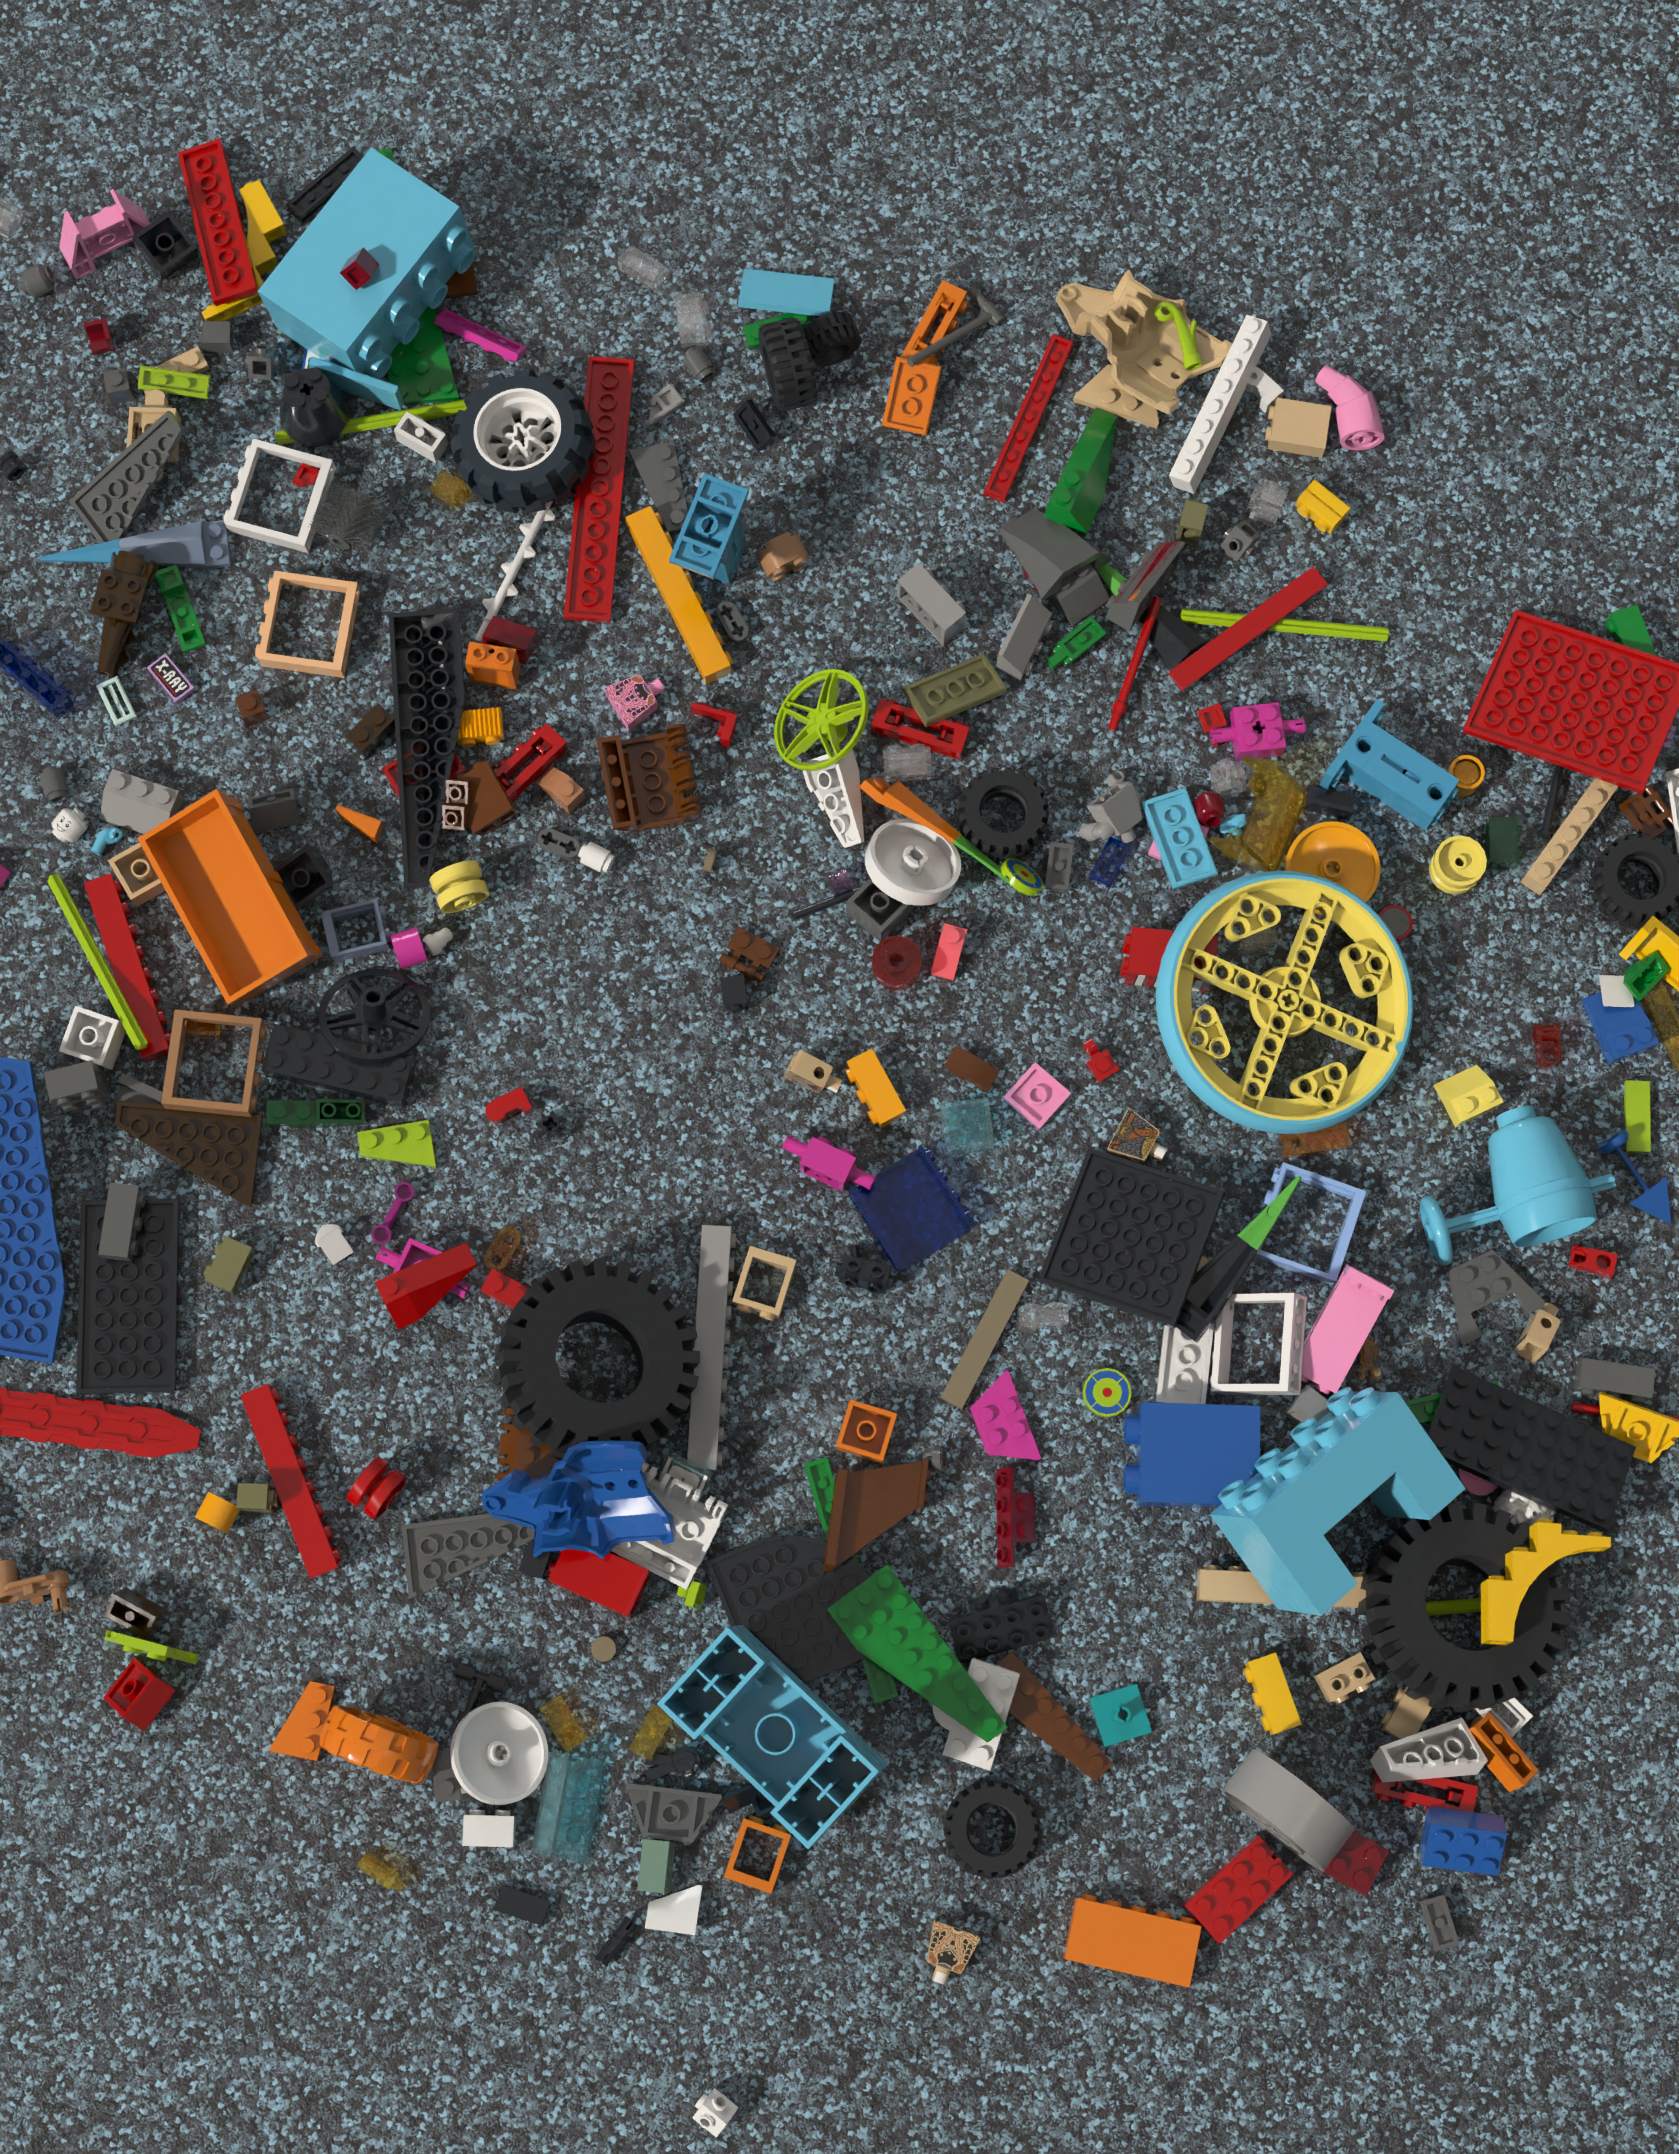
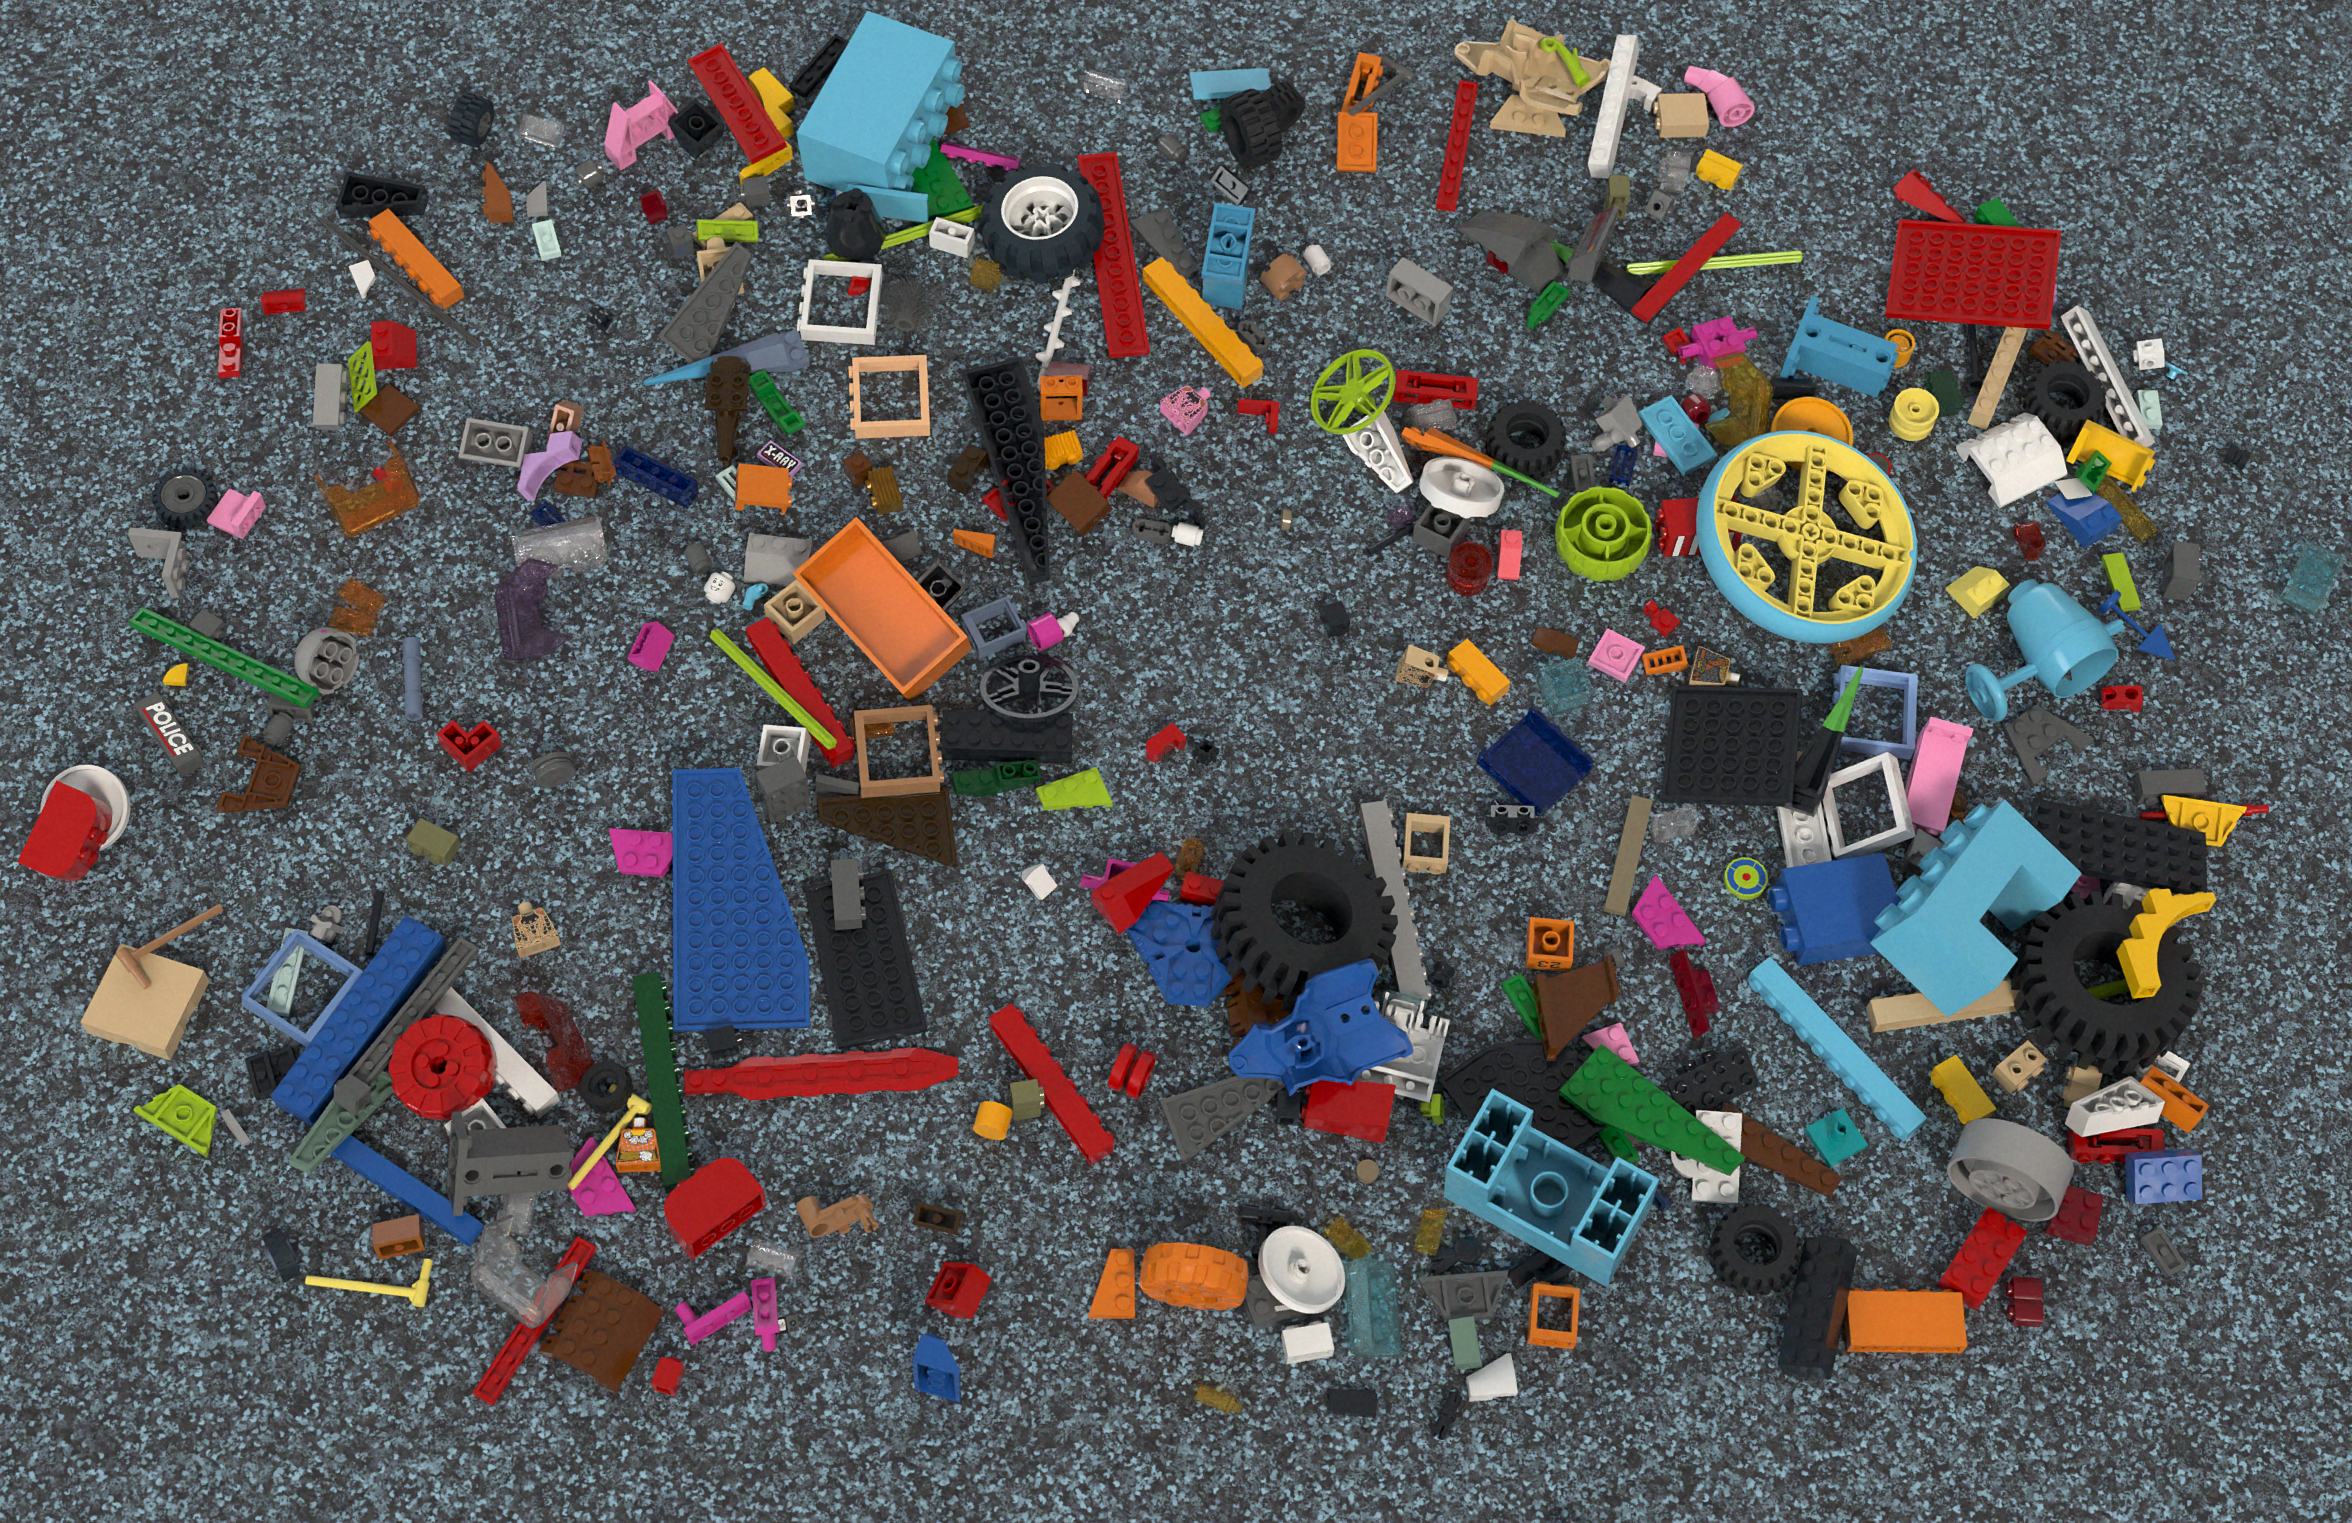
camera: 15 degrees left, 15 degrees down
(87, 1788) = (936, 1369): none -> blue slope
(141, 713) = (762, 487): none -> orange panel
(154, 1650) = (957, 1243): lime wing -> none
(229, 1265) = (950, 915): olive brick -> none
(275, 740) = (884, 490): none -> pearl gold brick
(359, 268) = (882, 99): dark red panel -> none
(404, 1193) = (1088, 831): magenta bar -> none
(455, 1336) = (1187, 961): none -> blue plate
(457, 805) = (1058, 509): reddish brown slope -> none
(459, 886) = (1077, 574): light yellow wheel -> none
(584, 806) = (1170, 493): none -> black bracket
(649, 780) = (1219, 466): reddish brown slope -> none
(664, 404) = (1150, 182): light grey tile -> none
(691, 319) = (1156, 115): clear brick -> none
(752, 948) = (1339, 583): reddish brown plate -> none
(828, 538) = (1317, 259): none -> white brick
(828, 1163) = (1456, 735): dark pink brick -> none
(906, 1560) = (1615, 1040): none -> bright pink wing
(910, 1744) = (1662, 1200): none -> dark blue slope
(949, 1950) = (1746, 1360): torso -> none
(954, 690) = (1456, 353): olive tile -> none
(1022, 877) = (1555, 485): lime tile -> none
(1024, 639) = (1503, 306): light grey slope -> none
(1040, 1910) = (1817, 1307): none -> black brick
(1052, 972) = (1603, 534): none -> lime wheel
(1085, 475) = (1518, 179): green wedge -> none
(1100, 1105) = (1671, 667): none -> orange slope
(1119, 706) = (1597, 344): red bar -> none
(1148, 1615) = (1836, 1049): none -> medium azure brick
(1270, 1947) = (2025, 1301): none -> dark red brick
(1538, 1333) = (2097, 752): tan torso -> none
(1548, 581) = (1917, 191): none -> red wedge
(1560, 939) = (2016, 457): none -> white slope

